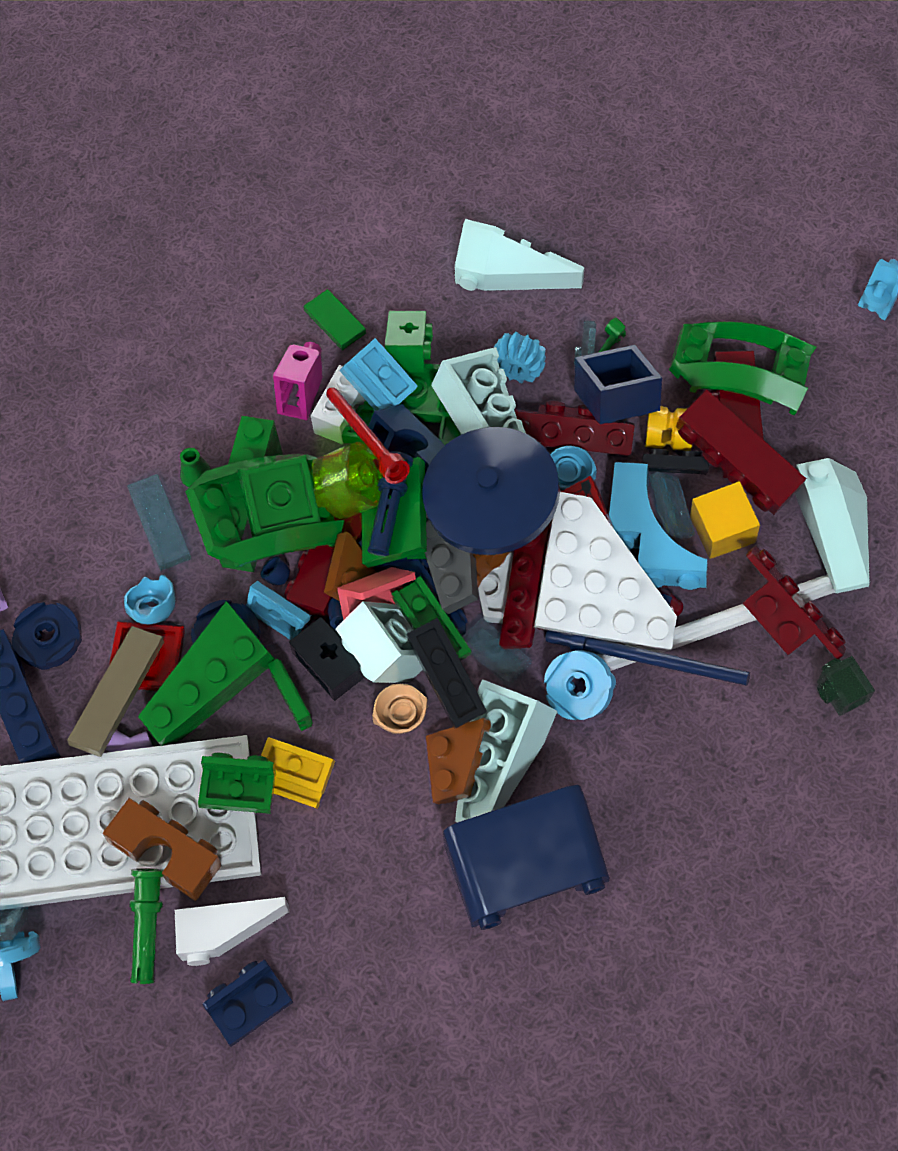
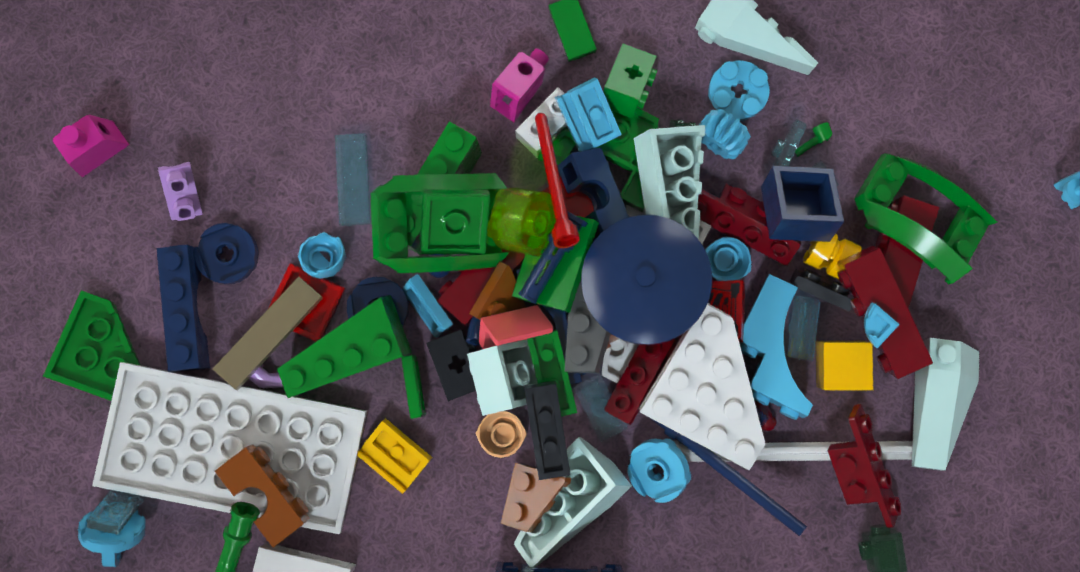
camera: 20 degrees right, 20 degrees up
(192, 466) = (402, 146): green cone -> none
(237, 783) = (341, 460): green bracket -> none
(519, 304) = (729, 76): none -> medium azure plate
(736, 459) = (878, 325): none -> medium azure tile

